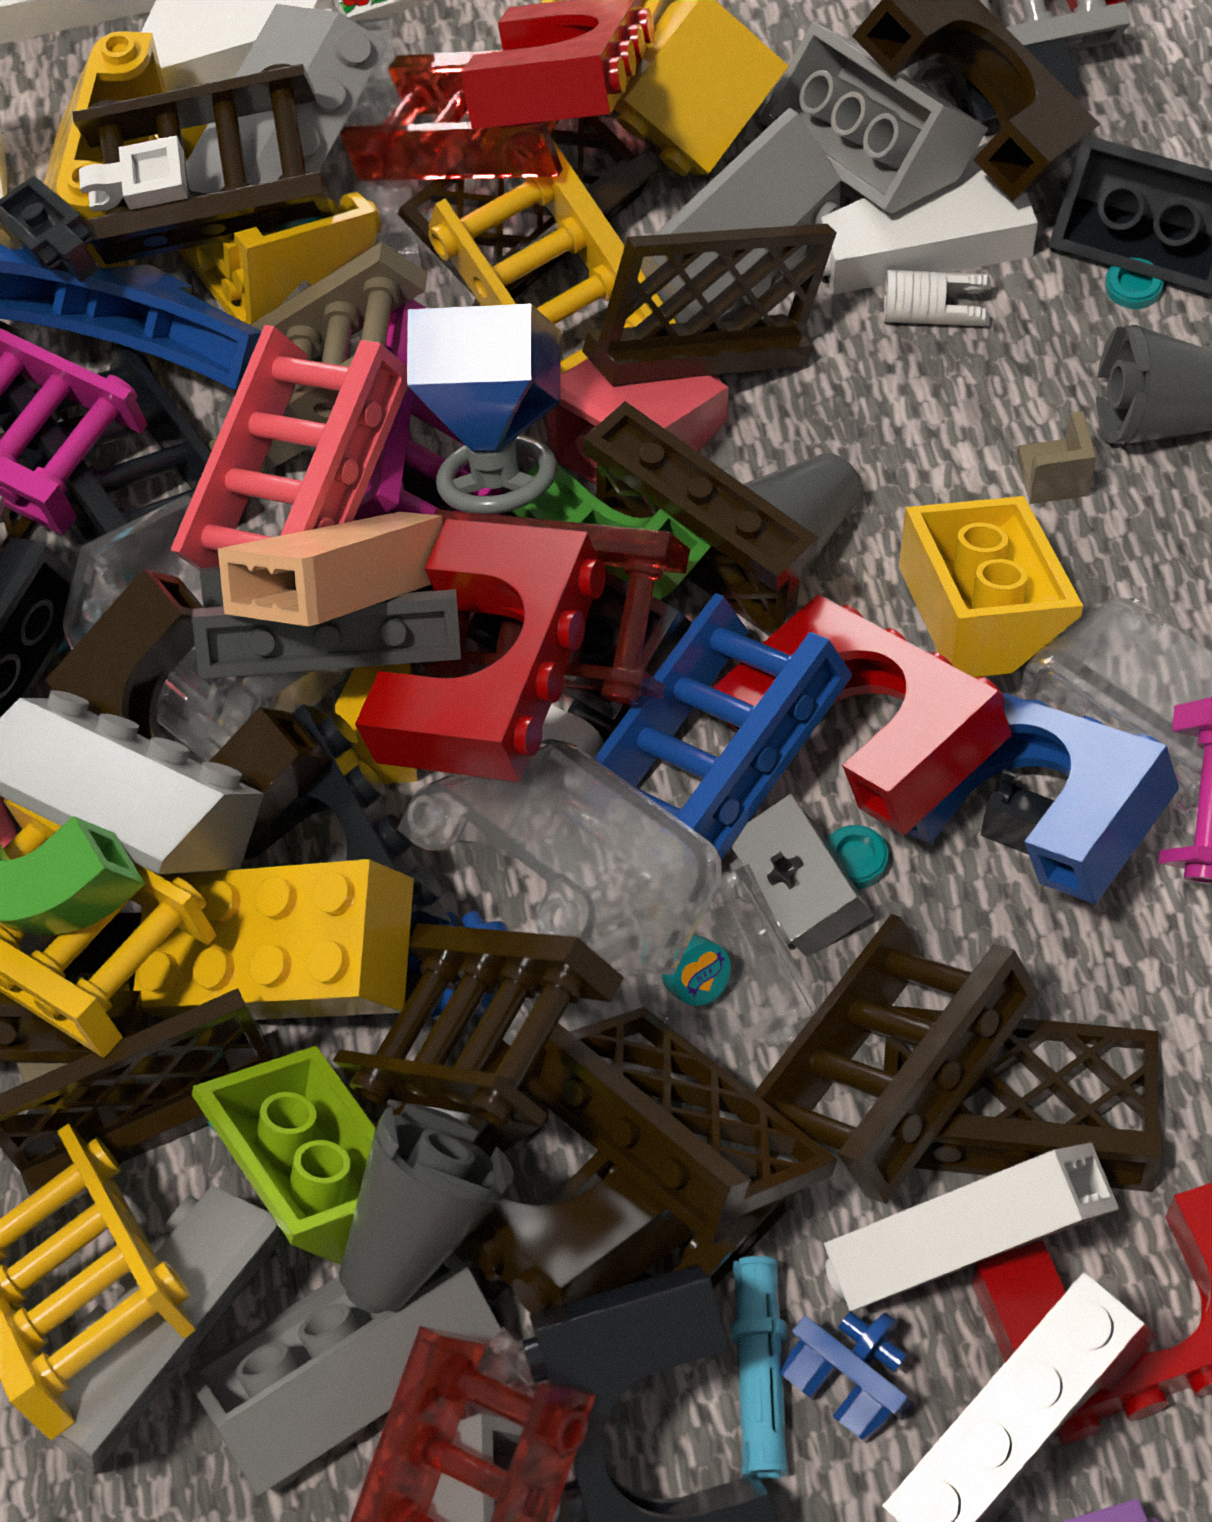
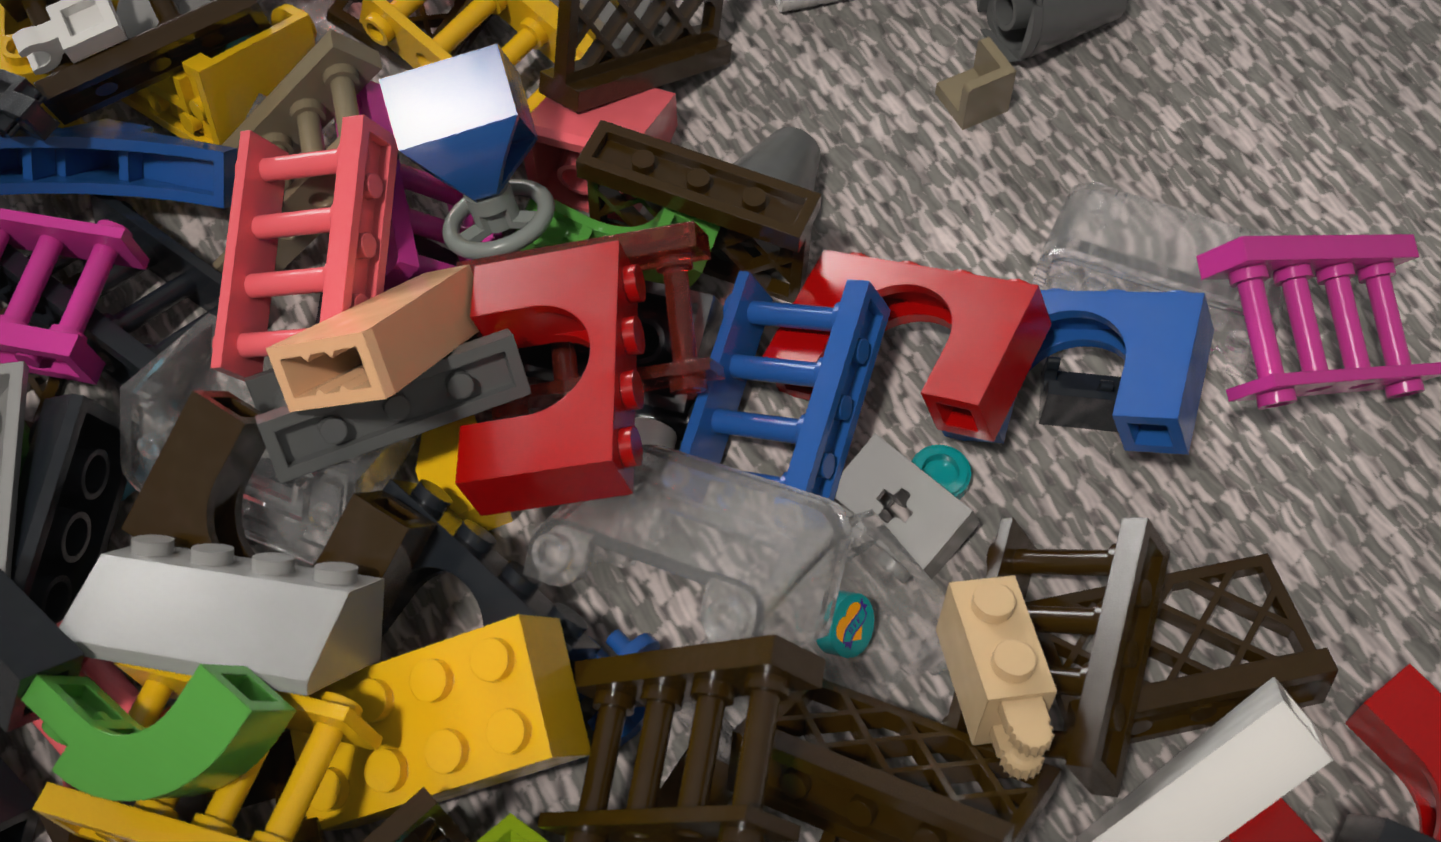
camera: 20 degrees left, 0 degrees up
(811, 1049) = (998, 671): none -> tan hinge
(985, 582) = (968, 200): yellow slope -> none

